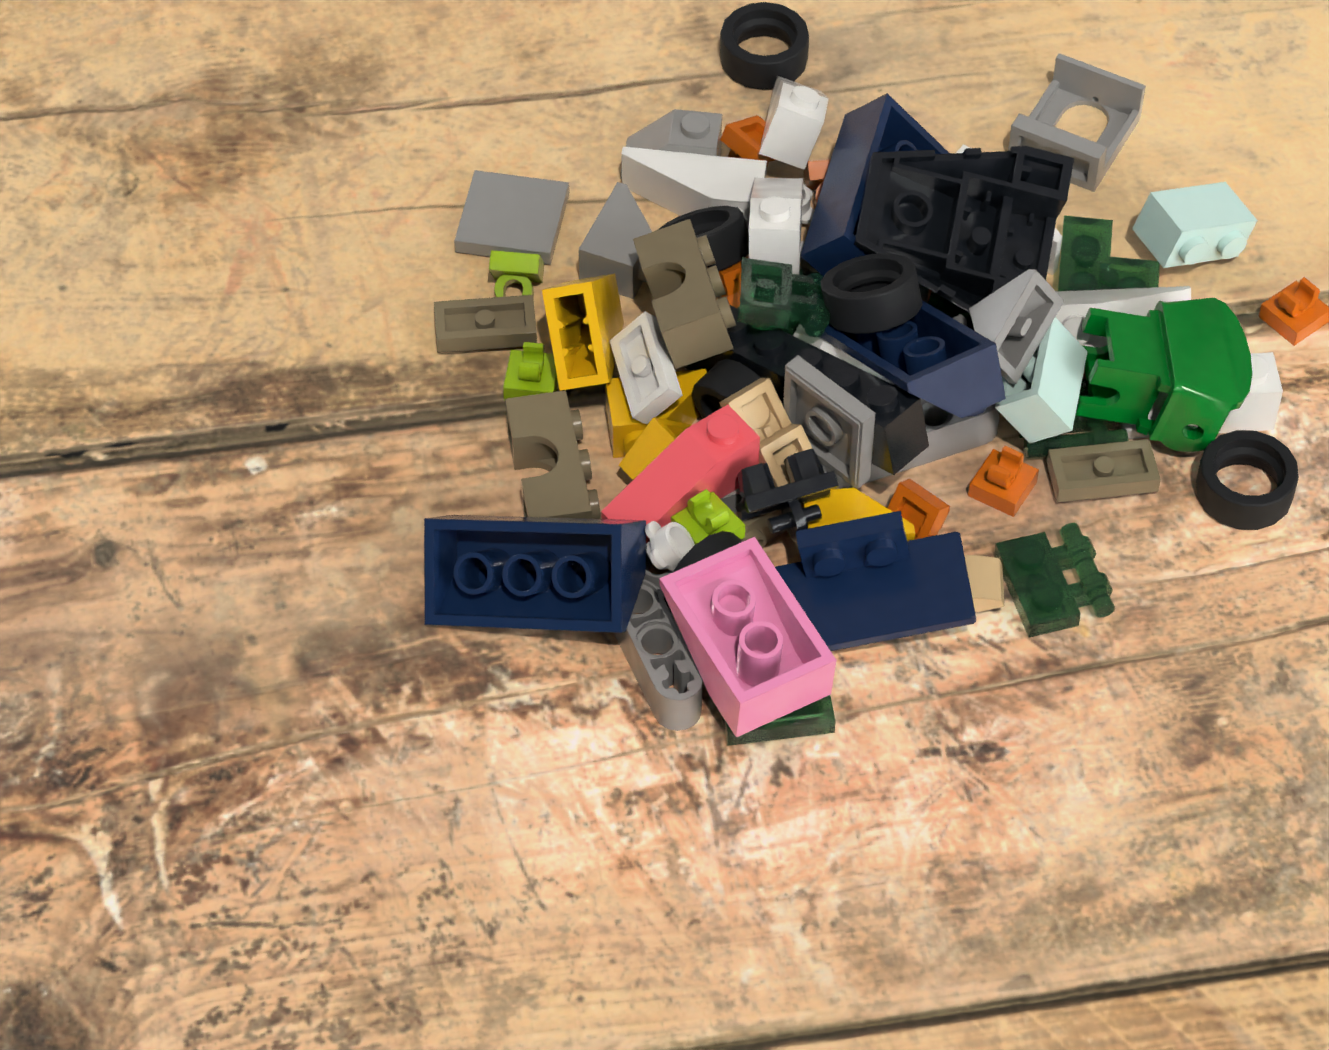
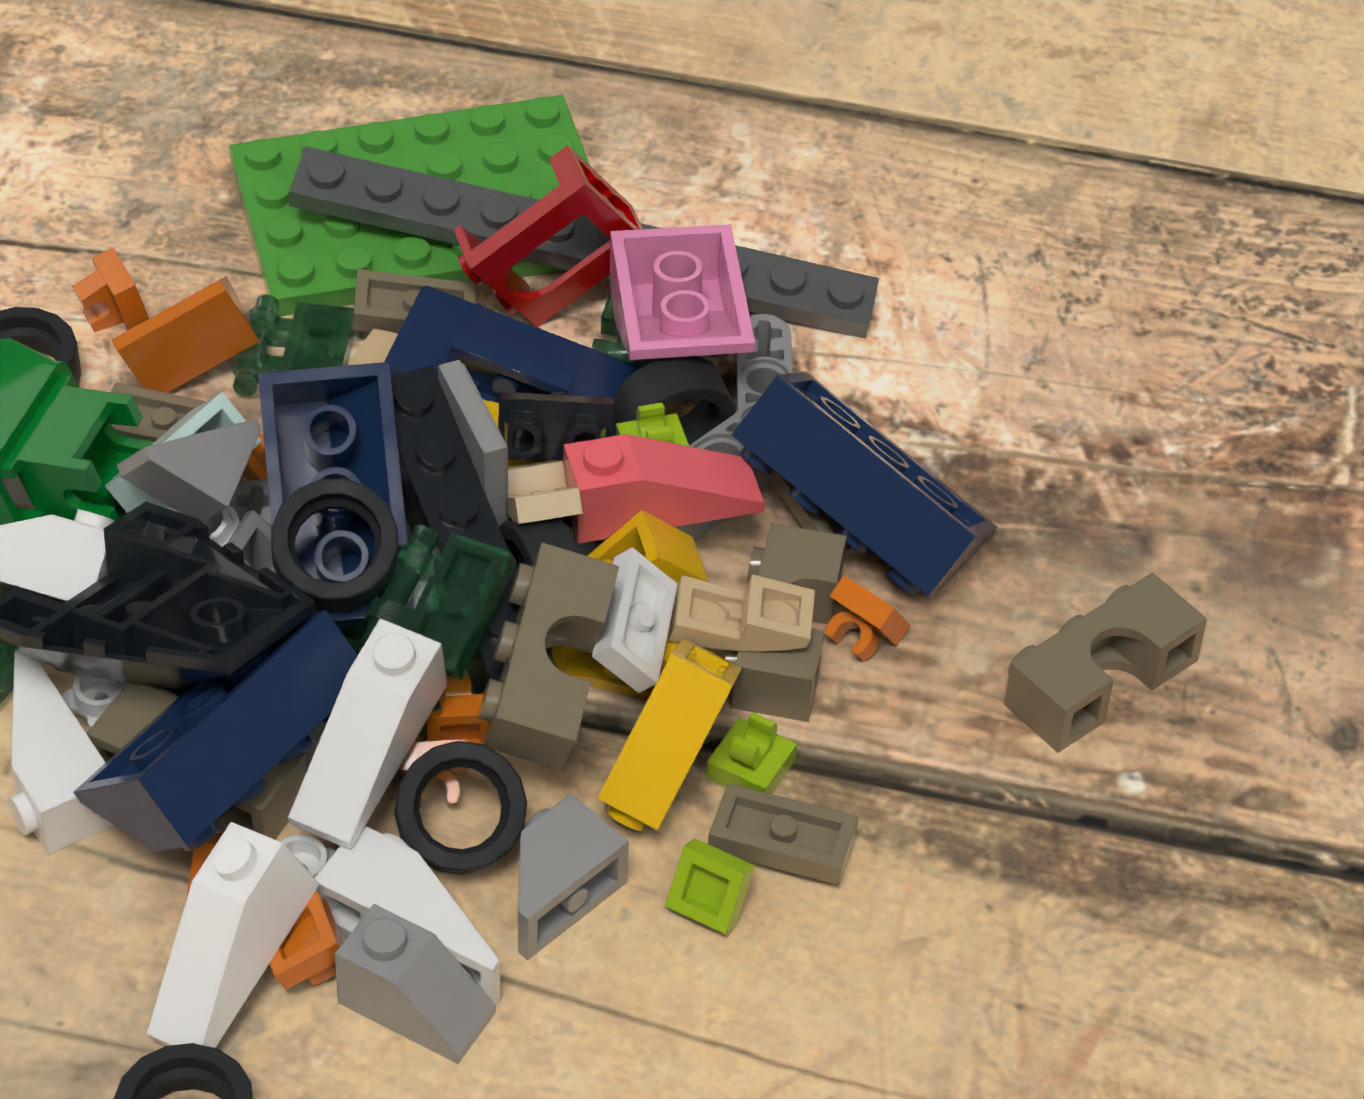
camera: 160 degrees left, 5 degrees down
(283, 552) = (1137, 630): none -> dark tan arch
(491, 492) = (866, 613): none -> orange tile
(511, 215) = (675, 988): light grey tile -> none
(582, 415) = (760, 619): none -> tan slope
(667, 544) = (712, 423): white plate -> none
(878, 735) = (437, 205): none -> dark grey plate
(881, 670) = (579, 193): none -> red panel
(999, 632) = (386, 298): none -> dark tan plate
(1049, 769) = (318, 255): none -> bright green plate
(1141, 526) = (187, 338): none -> orange slope
(1222, 561) = (110, 294): none -> orange tile

